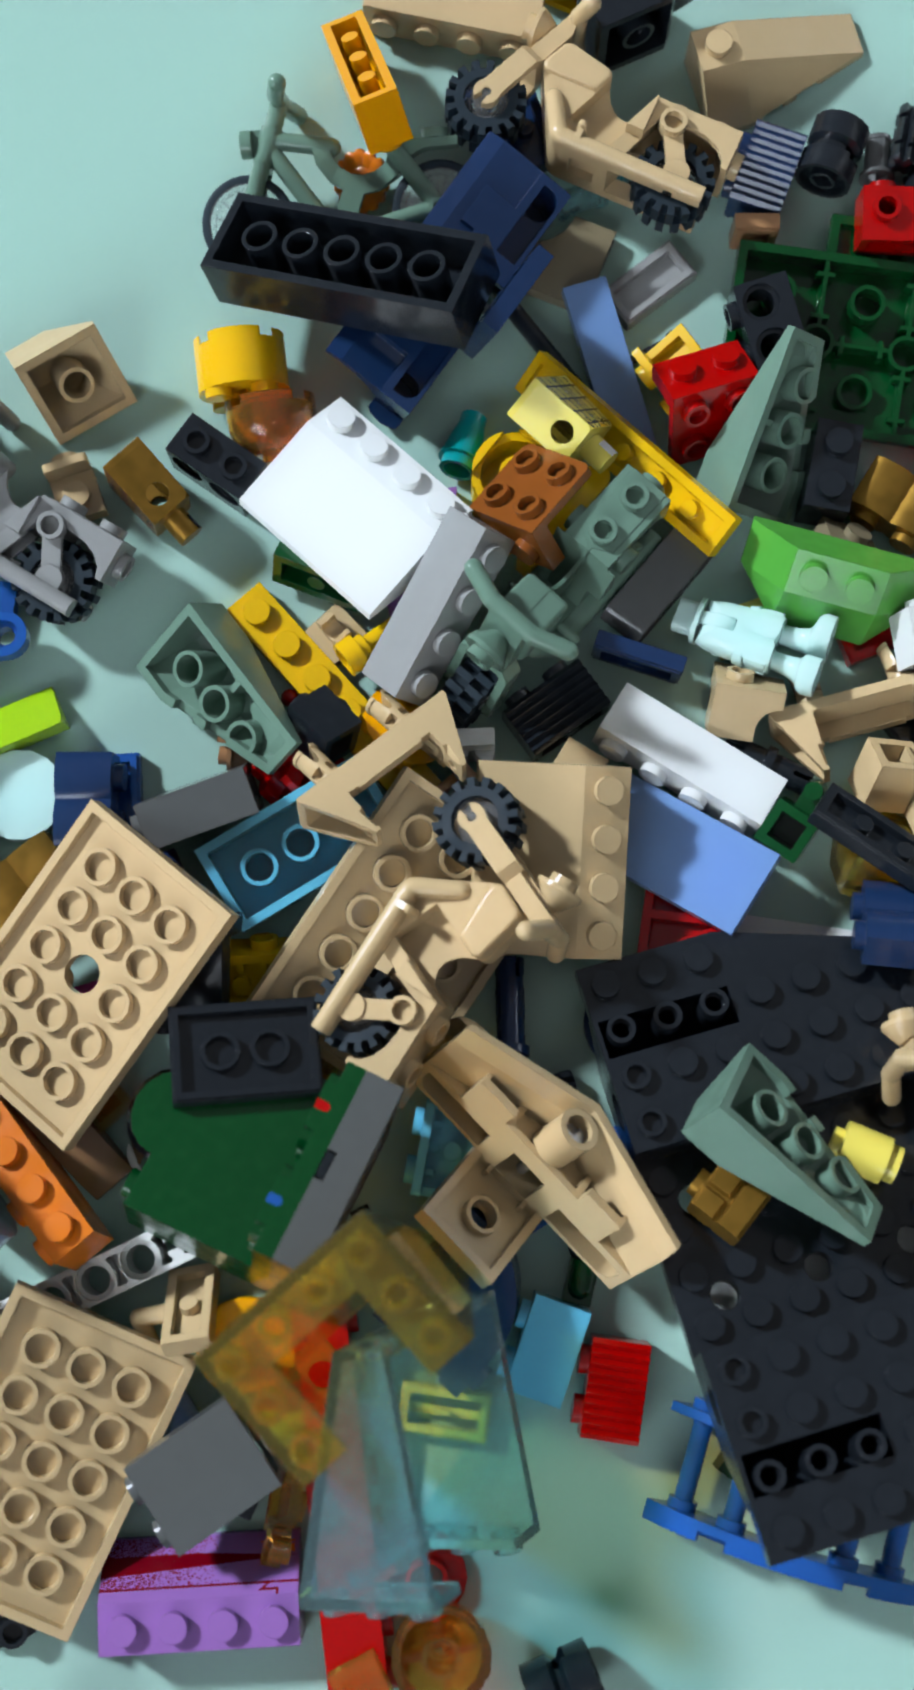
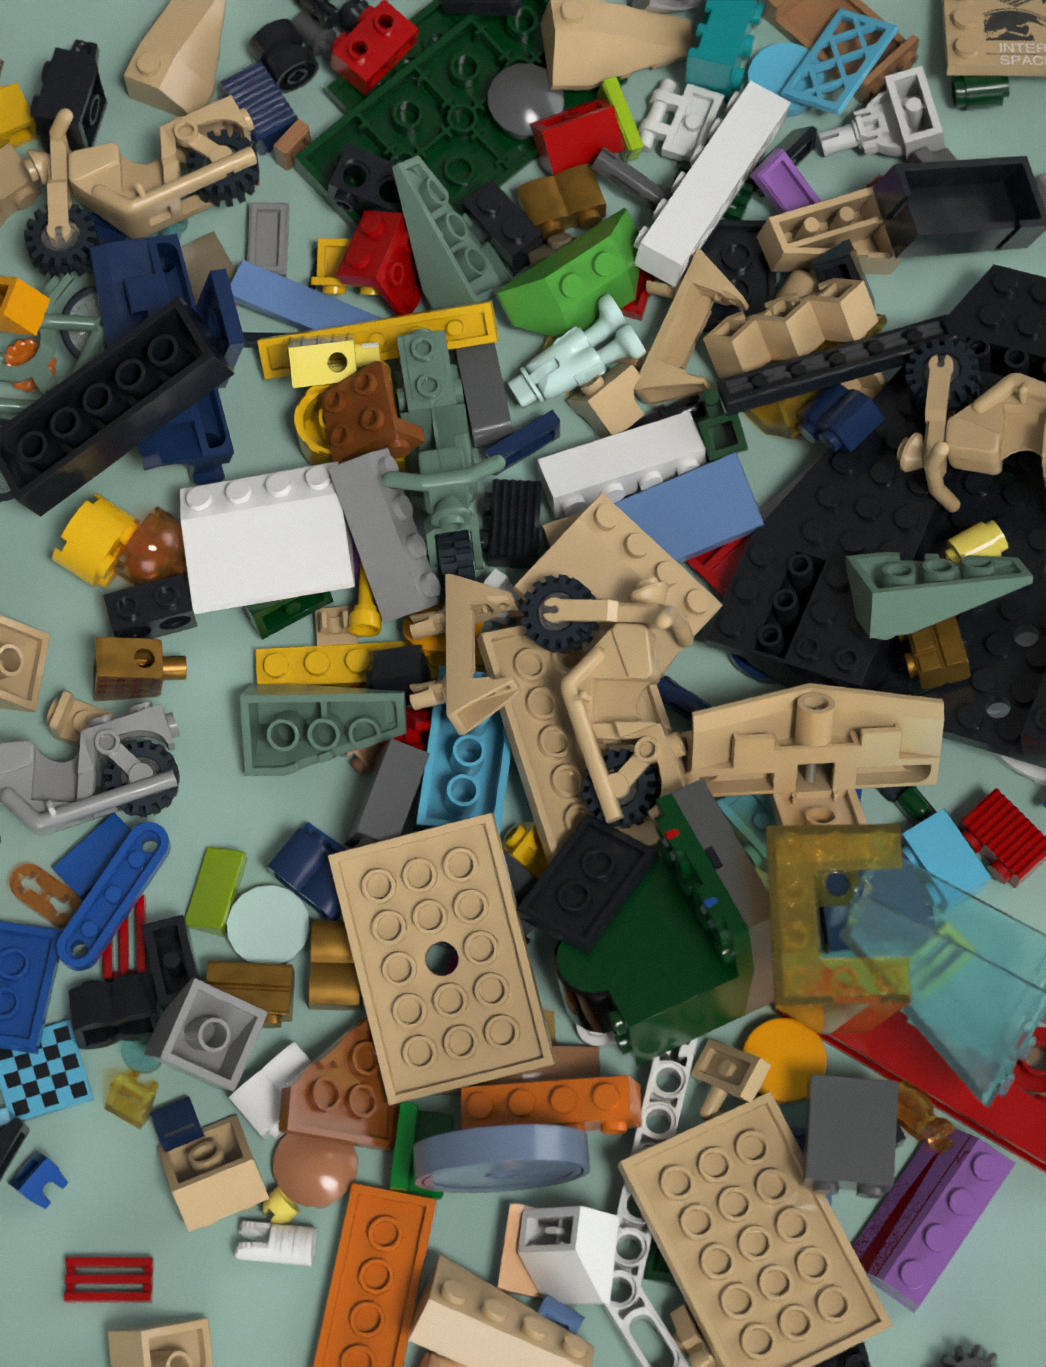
camera: 50 degrees left, 10 degrees down
(462, 444) = (278, 442): teal cone -> none

